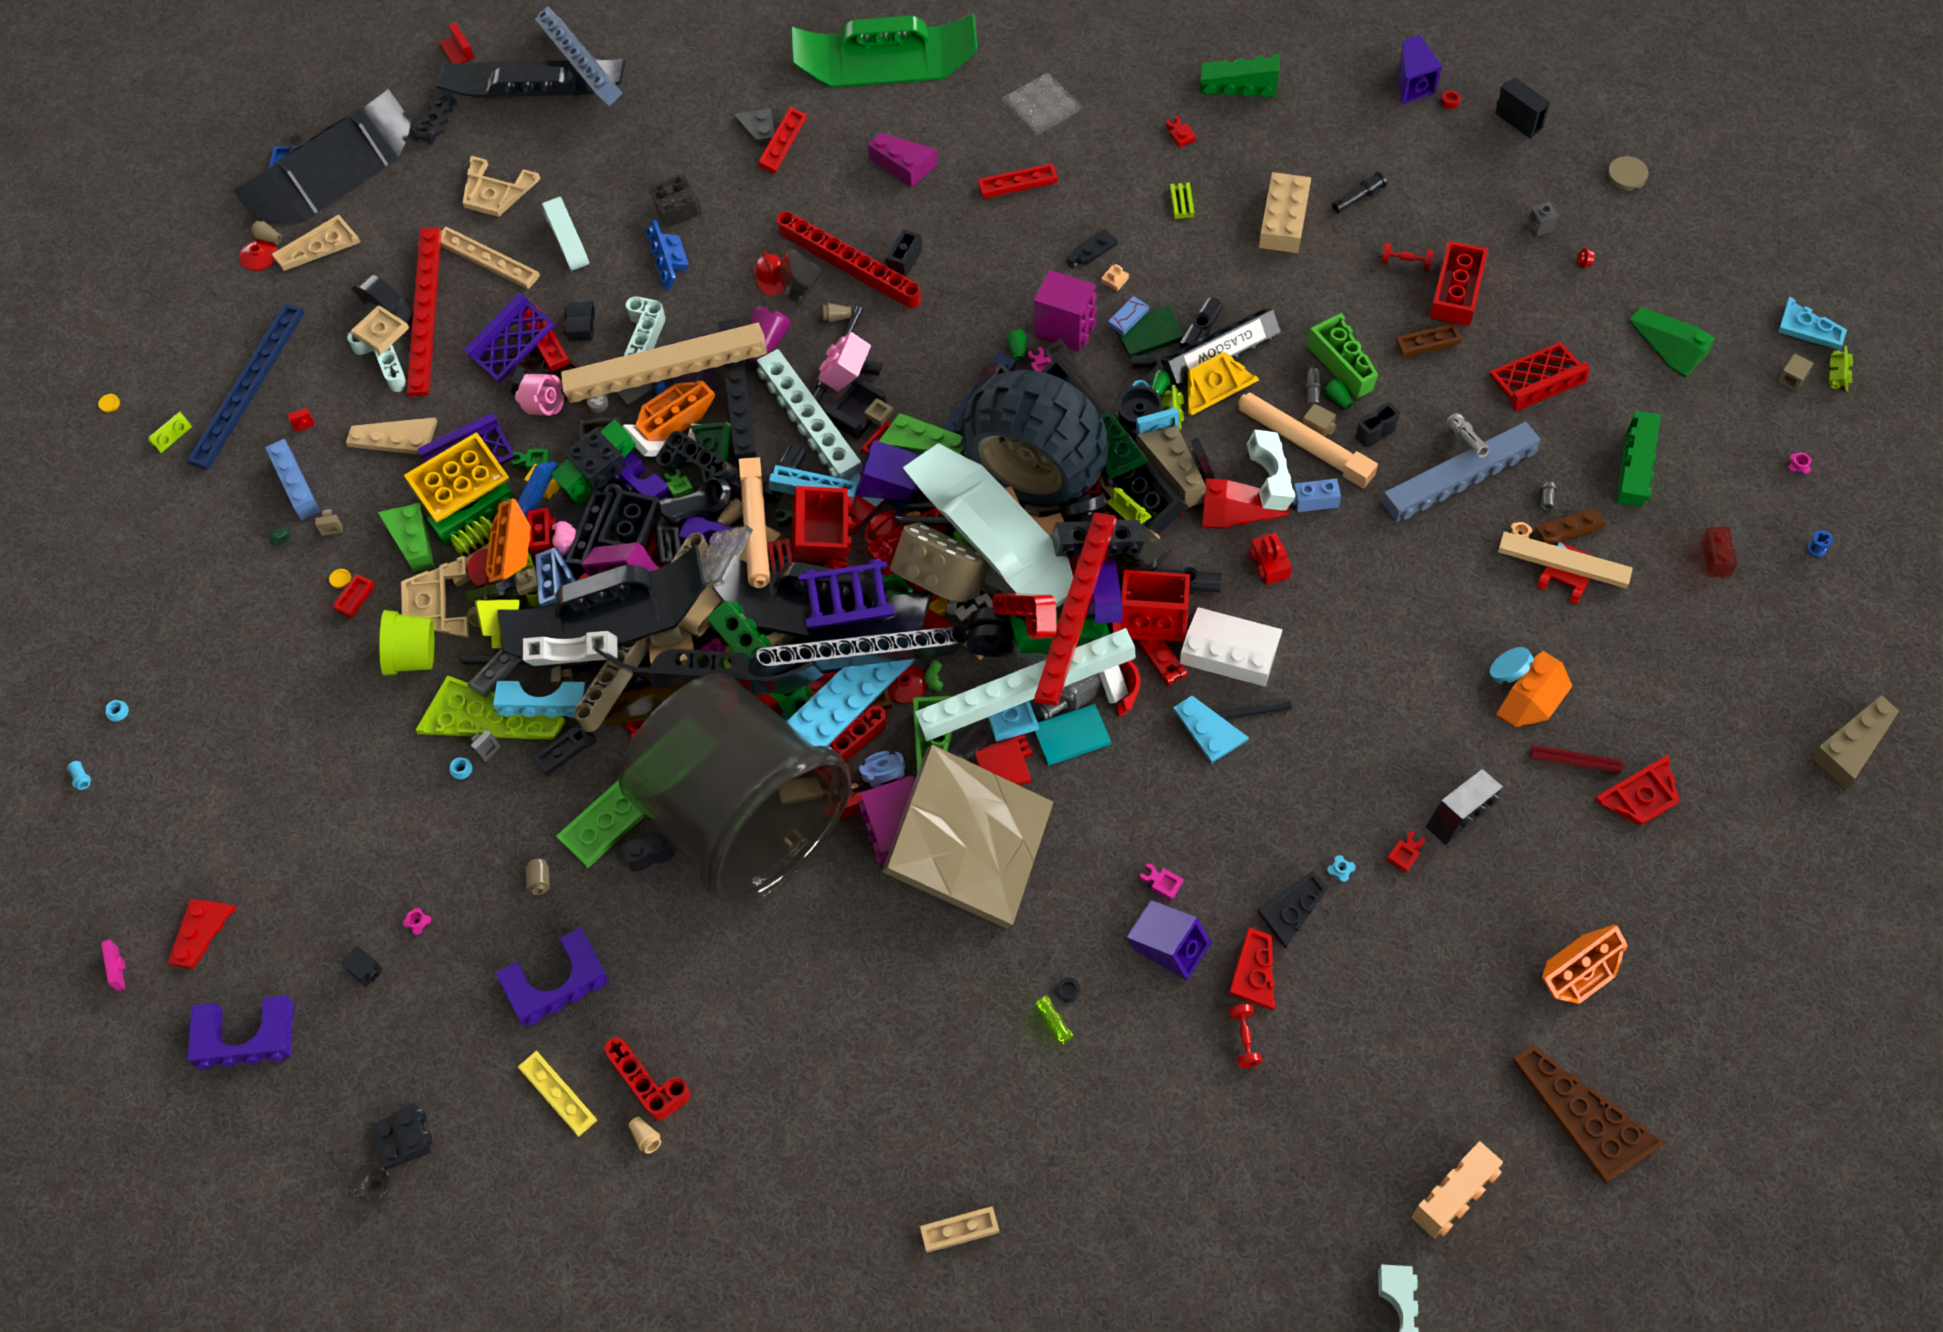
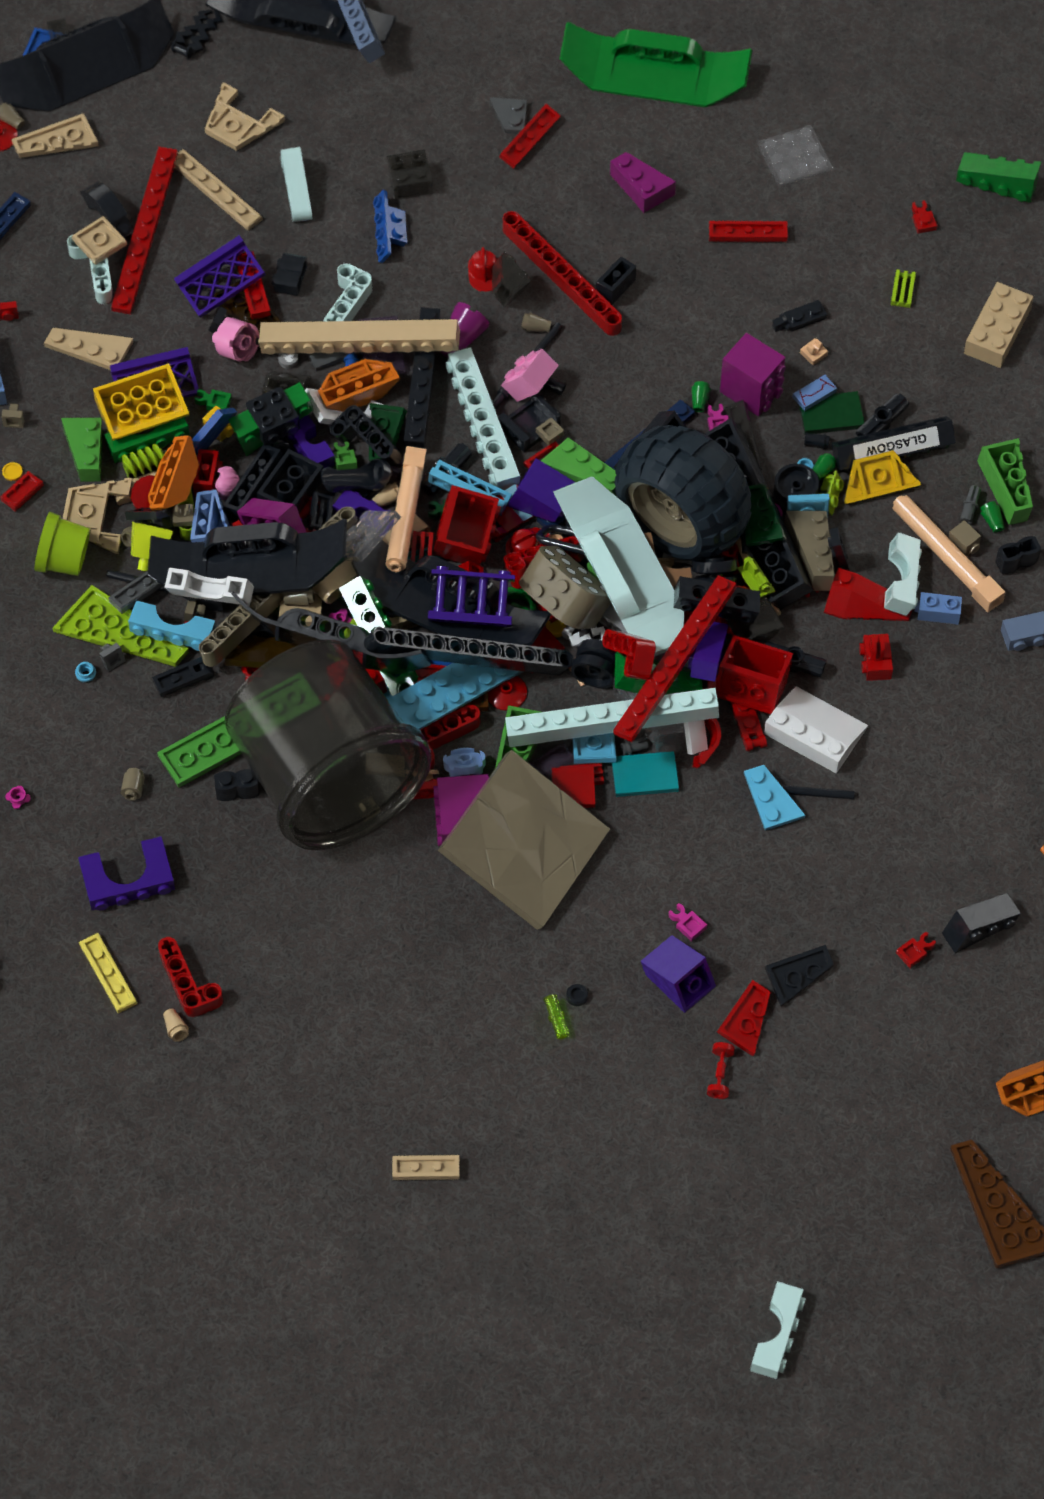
camera: 10 degrees right, 0 degrees up
(931, 677) = (531, 691): bright green arm -> none
(1342, 875) = (848, 954): medium azure plate -> none
(1457, 1190) = (863, 1240): light nougat wedge -> none

